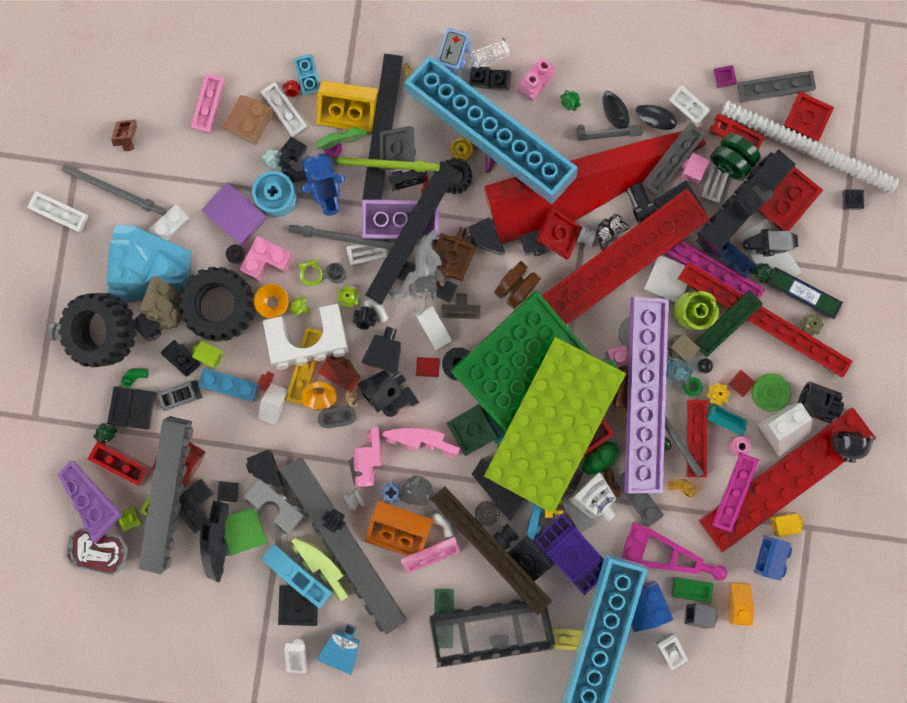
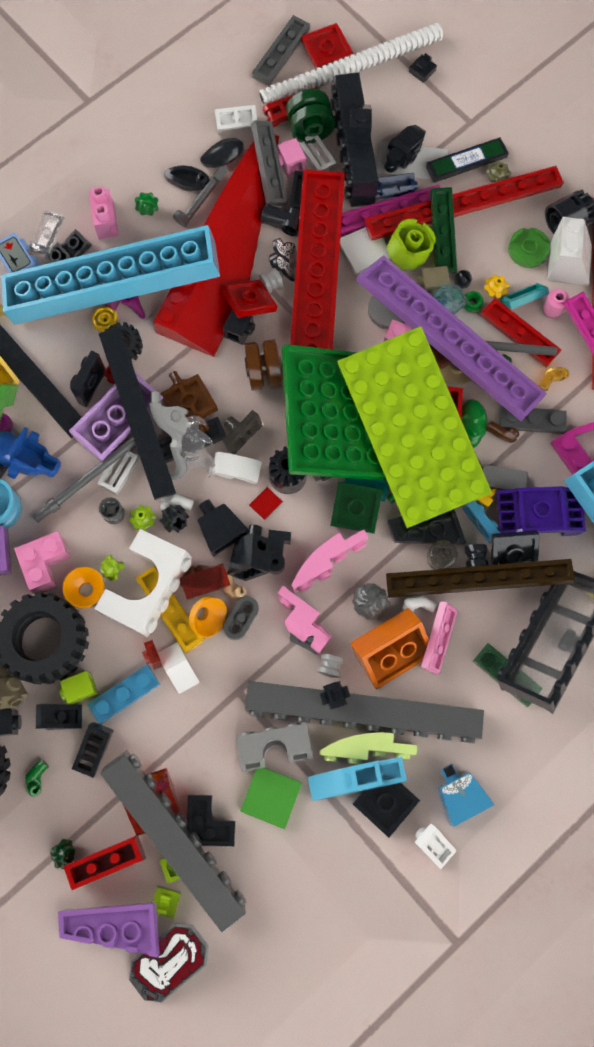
camera: 55 degrees left, 10 degrees down
(120, 406) = (51, 817): black tile -> none
(142, 409) = (73, 797): black tile -> none
(212, 547) = (260, 838): black slope -> none
(227, 491) = (221, 780): black tile -> none
(241, 254) = (18, 589): black plate -> none
(265, 468) = (230, 724): black slope -> none
(303, 267) = (79, 535): lime piece -> none
(387, 496) = (350, 619): medium blue gear -> none
(397, 145) = (53, 365): dark grey tile -> none
(418, 166) = (85, 352): lime bar -> none
(485, 237) = (198, 359): black slope -> none
(594, 498) = (504, 453): white torso -> none
(725, 76) = (238, 81): magenta tile -> none
(741, 383) = (502, 263): clear red plate -> none
(762, 272) = (423, 173): dark green plant -> none
(790, 200) = (387, 109): red plate -> none

